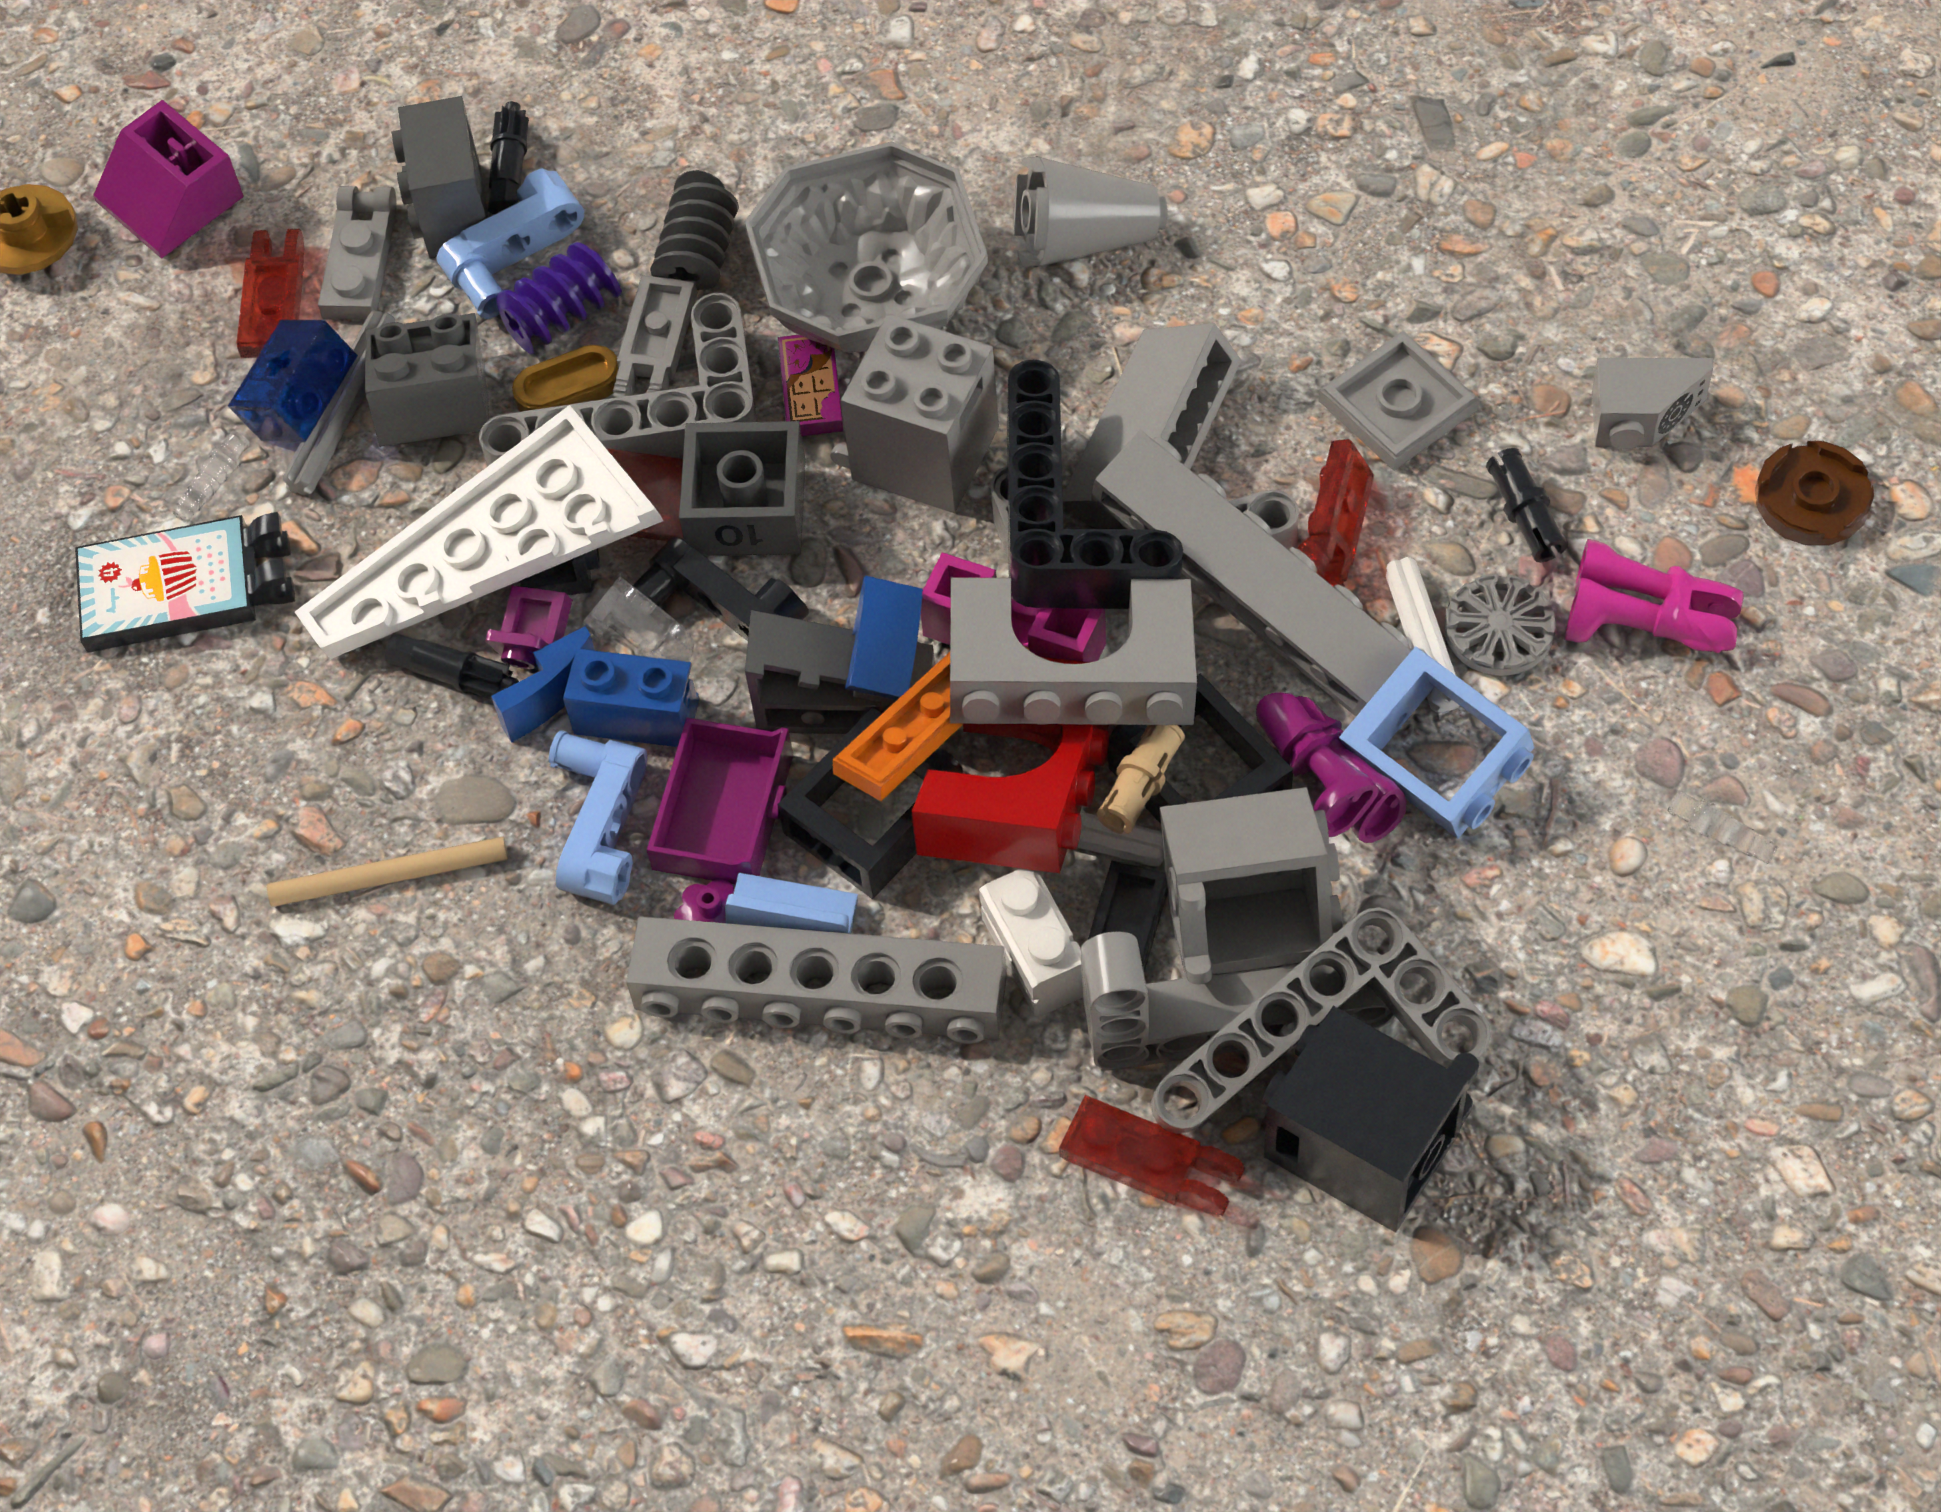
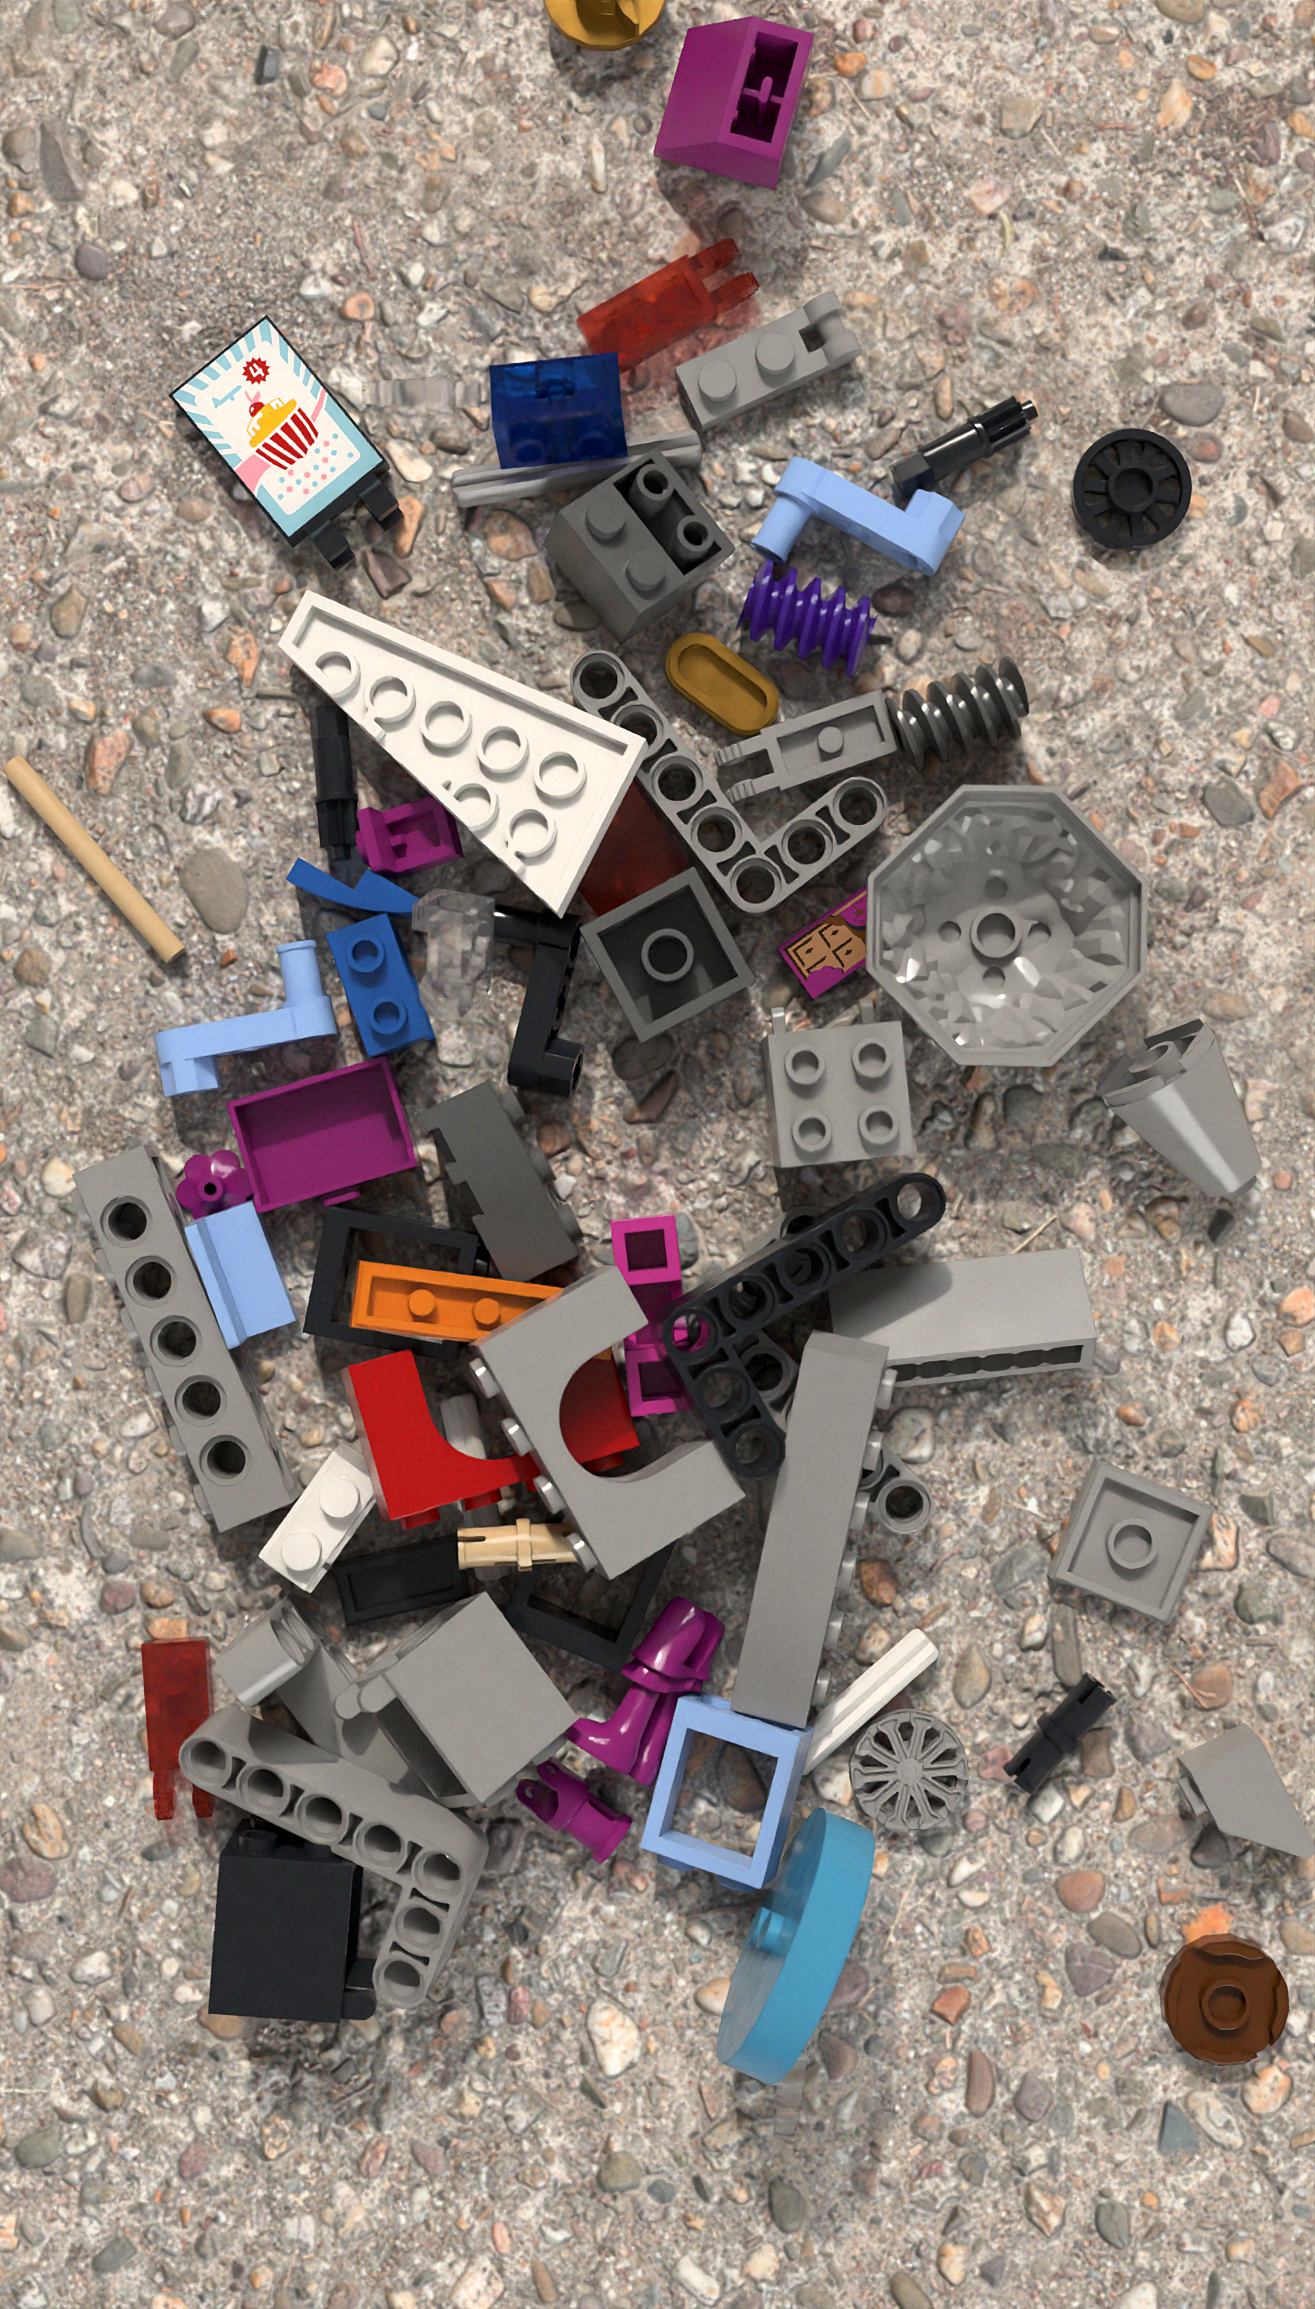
camera: 60 degrees right, 30 degrees up
(440, 171) = (883, 403): dark grey brick -> none
(612, 79) = (1131, 489): none -> black wheel
(884, 638) = (539, 1223): blue slope -> none
(1338, 512) = (939, 1560): clear red hinge -> none
(1404, 871) = (574, 1809): none -> magenta piece
(1588, 708) = (796, 1947): none -> dark azure brick
(1692, 611) = (1013, 1843): dark pink piece -> none

